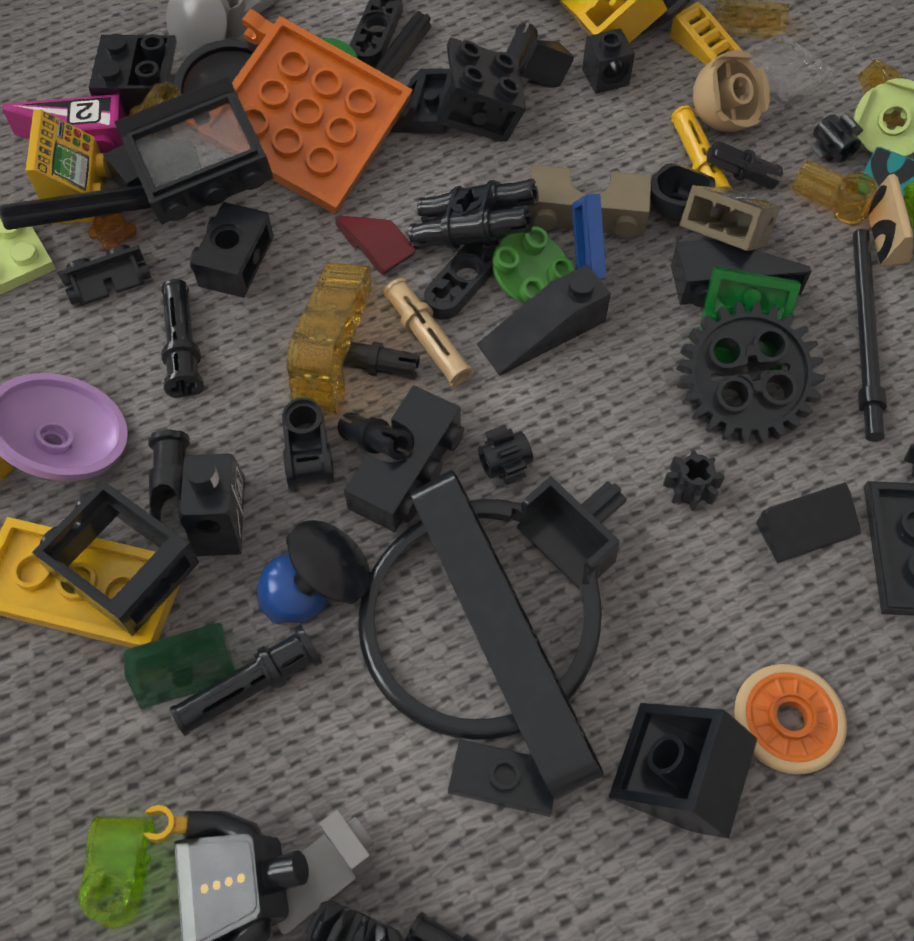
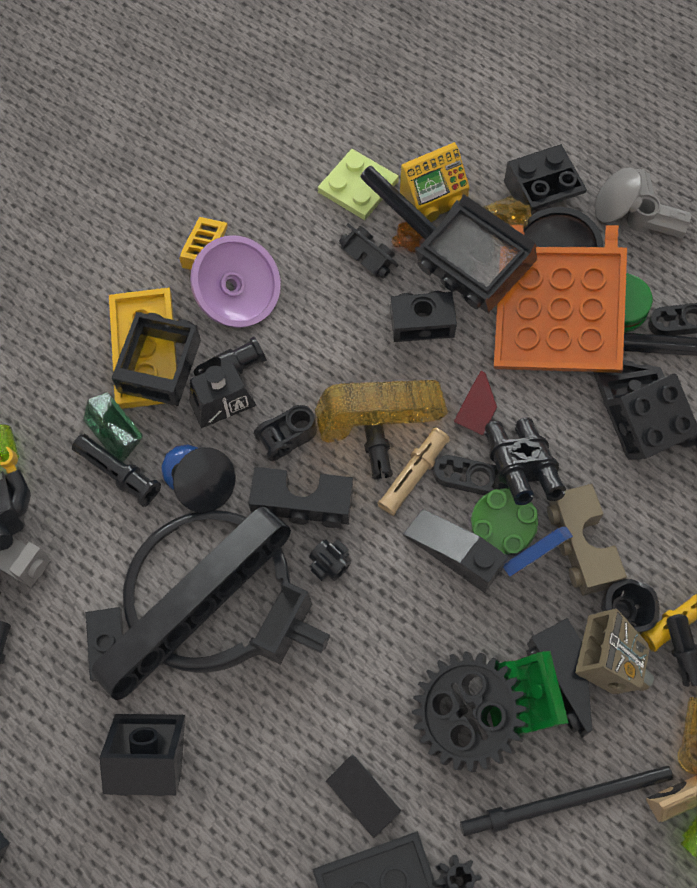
camera: 70 degrees right, 5 degrees up
(90, 114) = (484, 171): dark pink slope -> none
(180, 352) = (327, 324): black pin -> none
(375, 435) = (306, 469): black pin -> none
(693, 480) = (358, 688): black gear -> none
(822, 714) = (229, 827): orange wheel -> none

